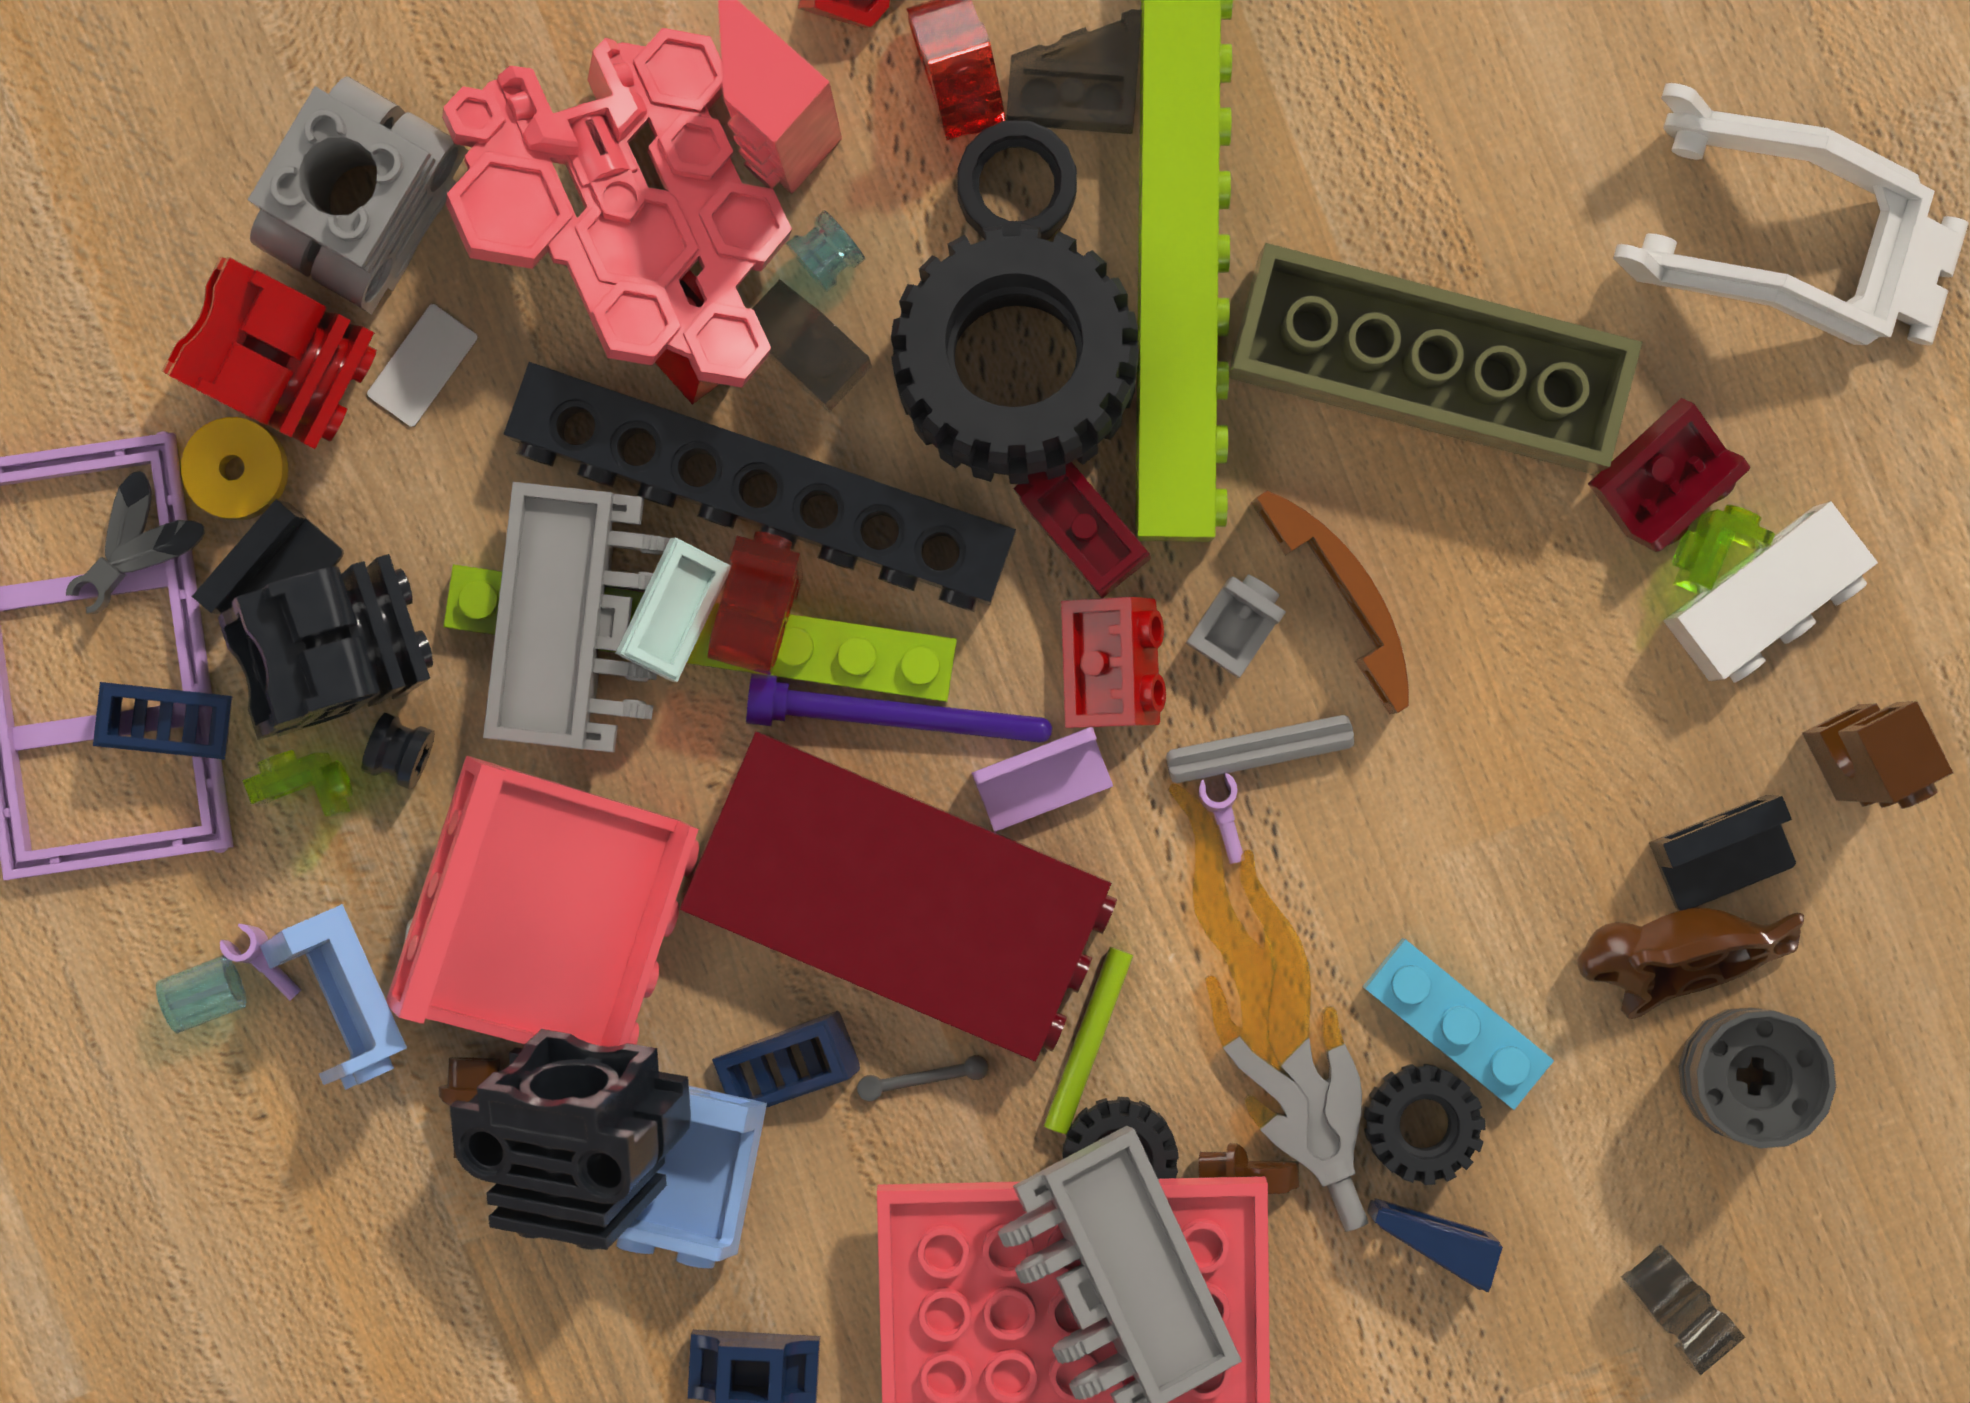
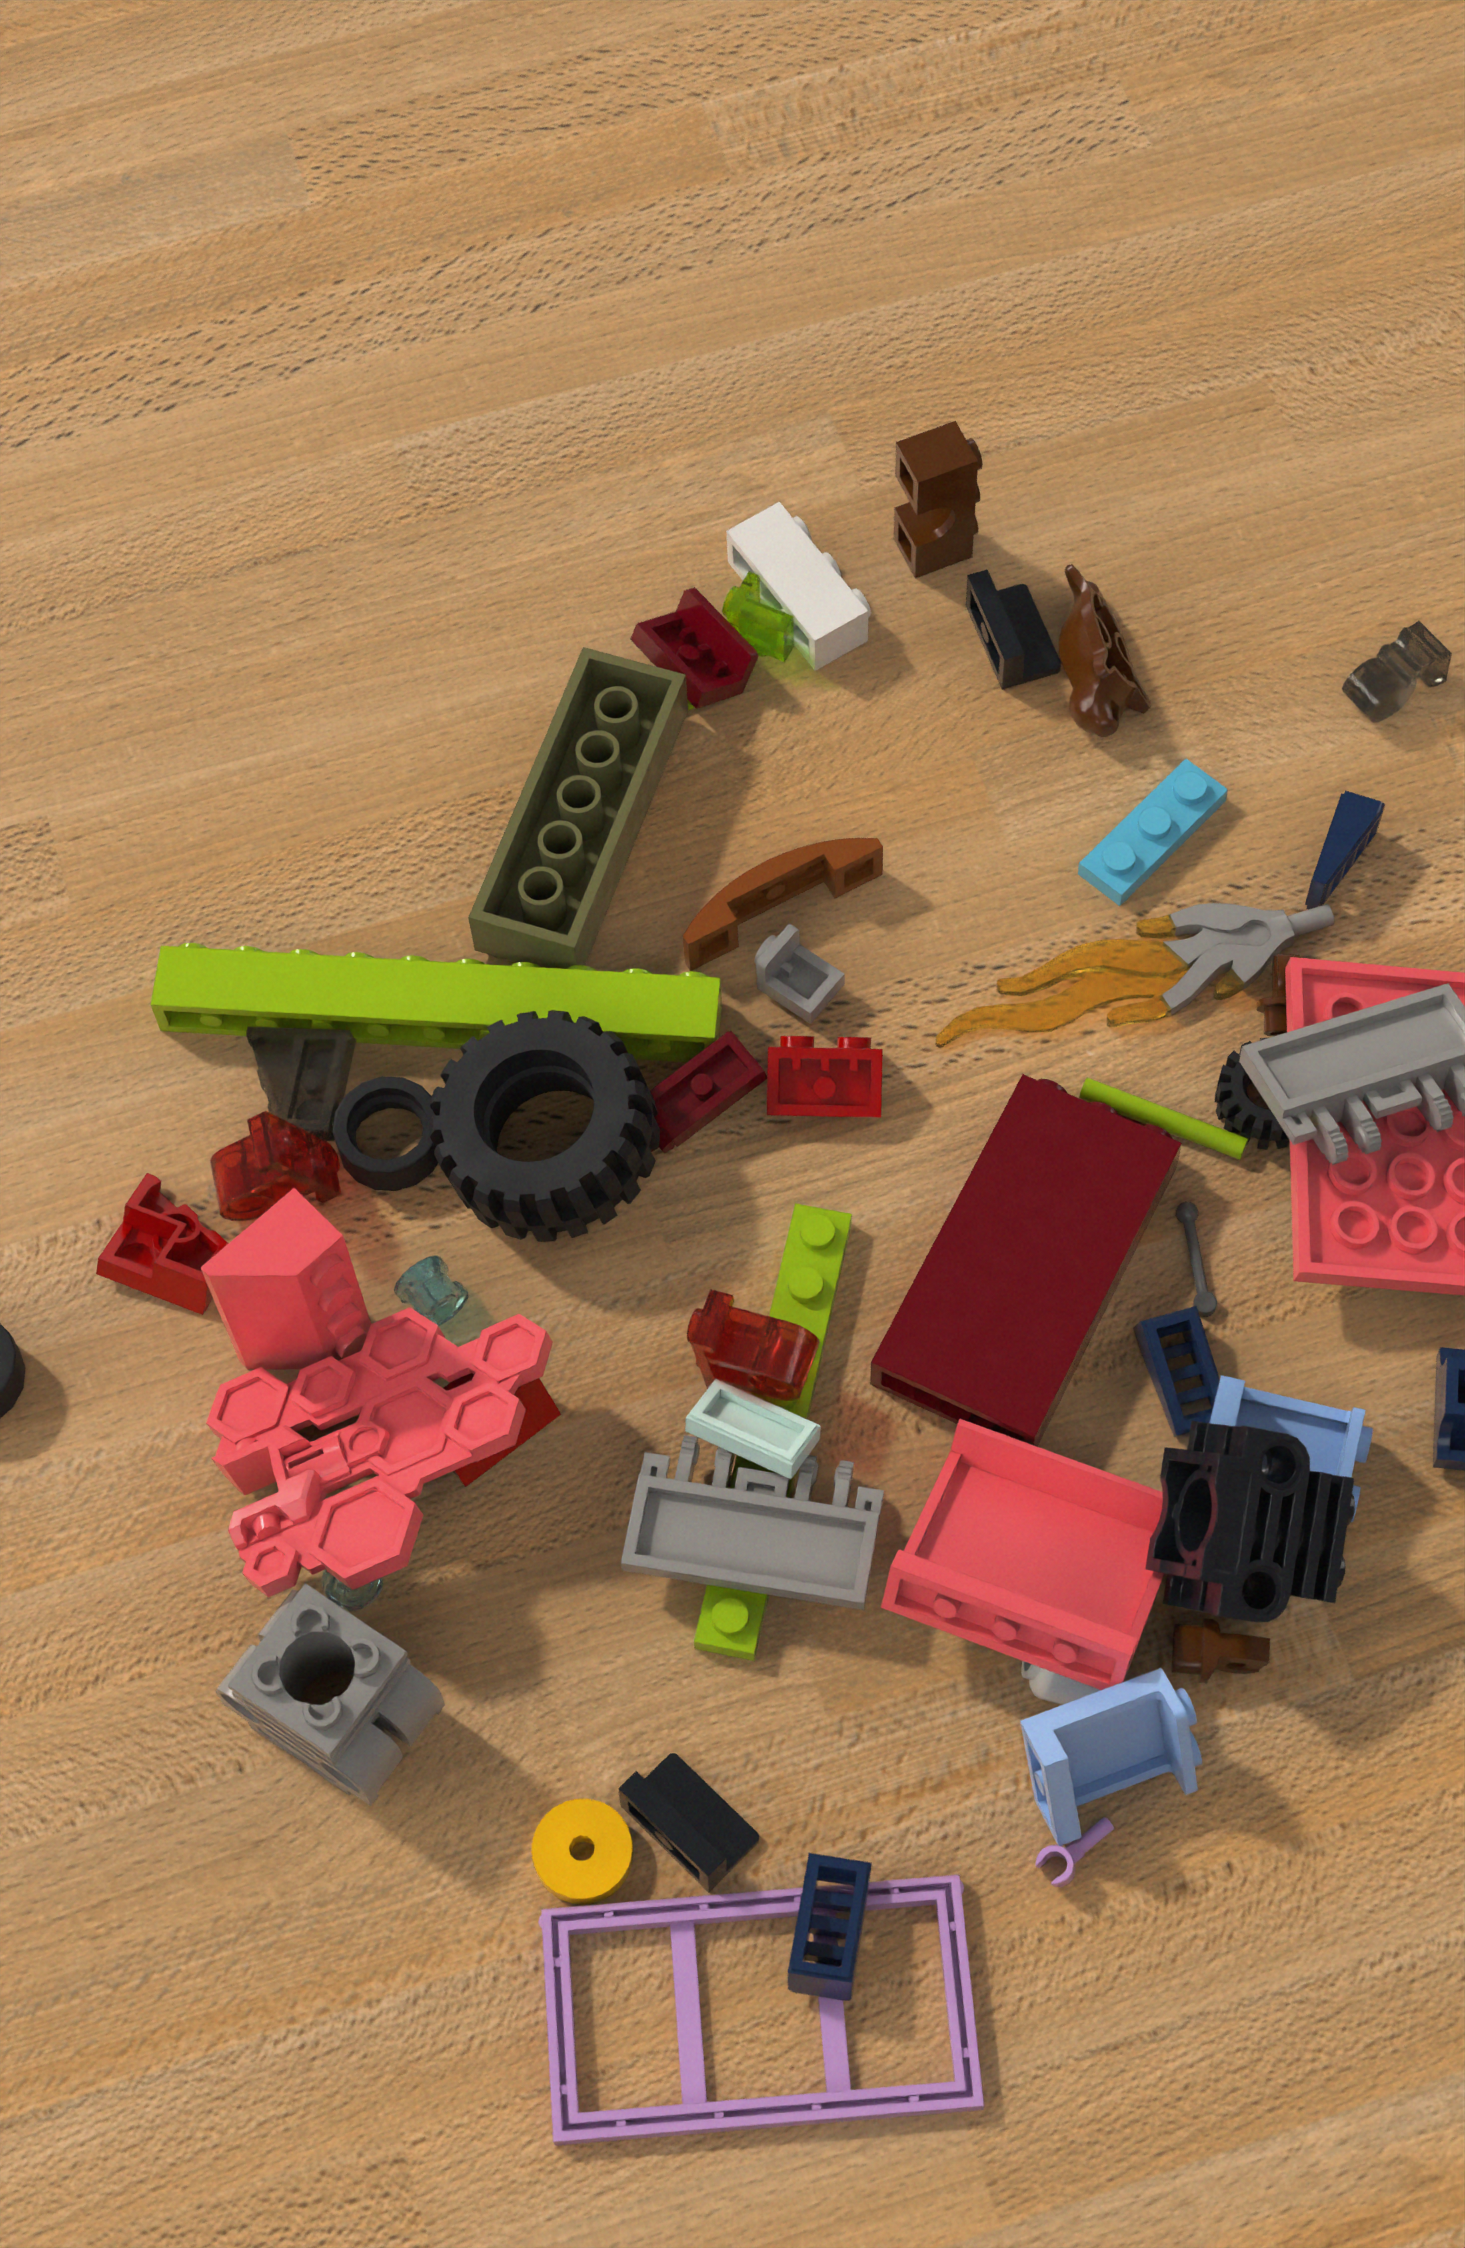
camera: 80 degrees left, 25 degrees down
(129, 546) = (654, 1955): dark grey piece -> none
(201, 994) = (1105, 1906): clear light blue piece -> none
(271, 353) = (474, 1776): red piece -> none
(286, 774) = (890, 1807): clear neon green bracket -> none
(326, 645) = (769, 1737): black piece -> none
(397, 750) = (871, 1700): black wheel -> none
(422, 365) = (498, 1670): white sticker -> none
(552, 397) = (569, 1552): black brick -> none
(773, 701) = (842, 1364): dark purple piece -> none
(810, 346) = (527, 1287): clear smoke slope -> none
(1042, 779) = (924, 1141): lavender panel -> none
(1225, 818) = (947, 991): lavender hand -> none
(1260, 749) = (908, 969): light grey axle -> none
(1461, 1135) = (1246, 830): black tyre -> none
(1794, 1085) = (1200, 603): dark grey wheel -> none
(1903, 256) = (518, 481): white piece -> none

